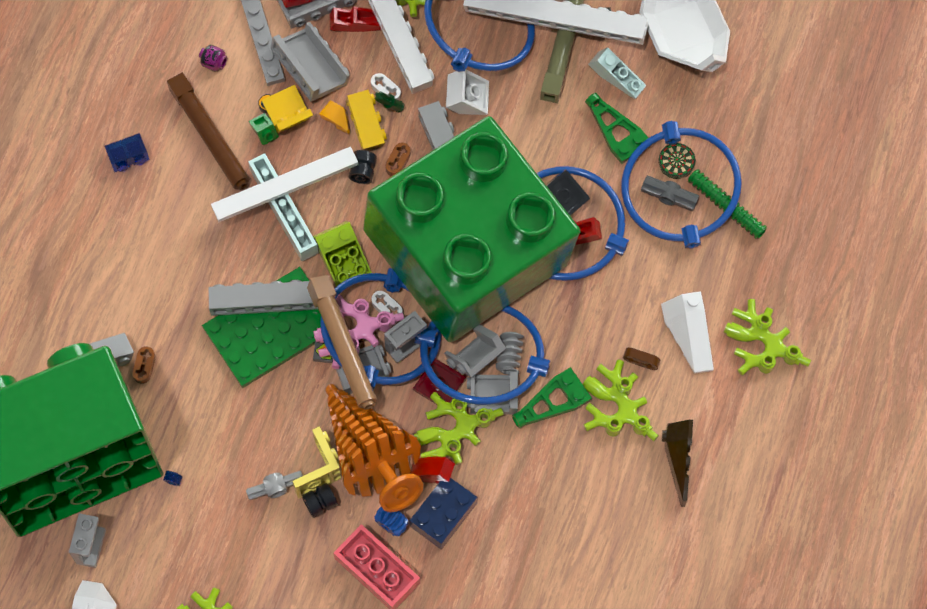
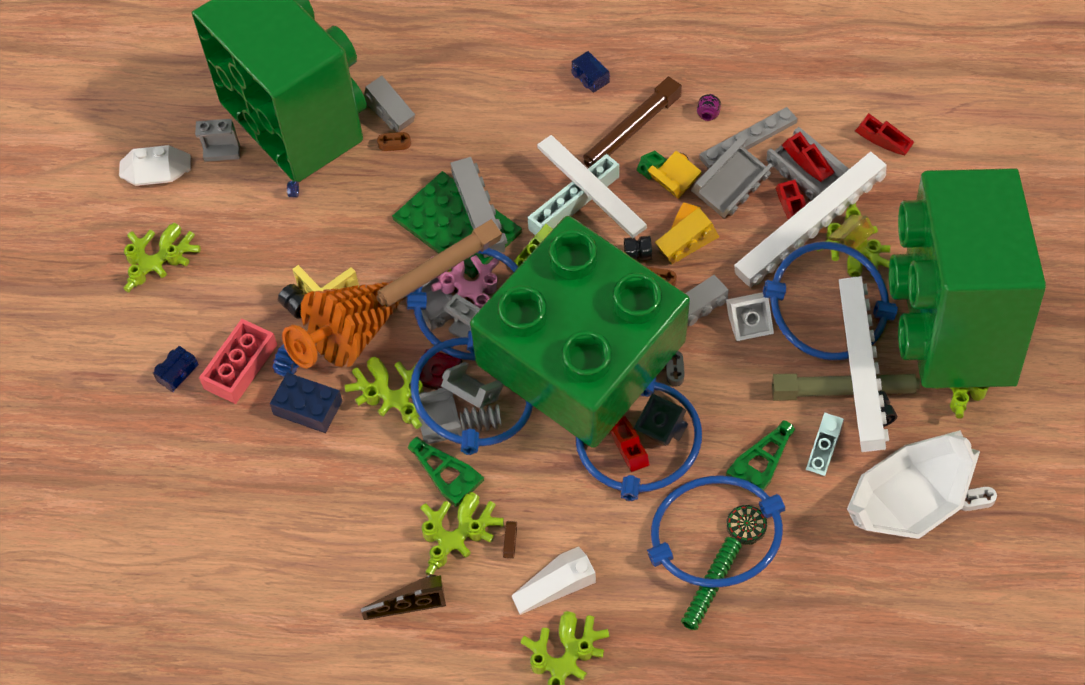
camera: 80 degrees right, 10 degrees down
(273, 485) = (304, 261): light grey axle -> none
(387, 83) = (727, 247): white beam -> none
(389, 101) = (712, 249): dark green axle -> none
(433, 469) = (337, 376): red slope -> none
(669, 193) = (705, 524): dark grey piece -> none

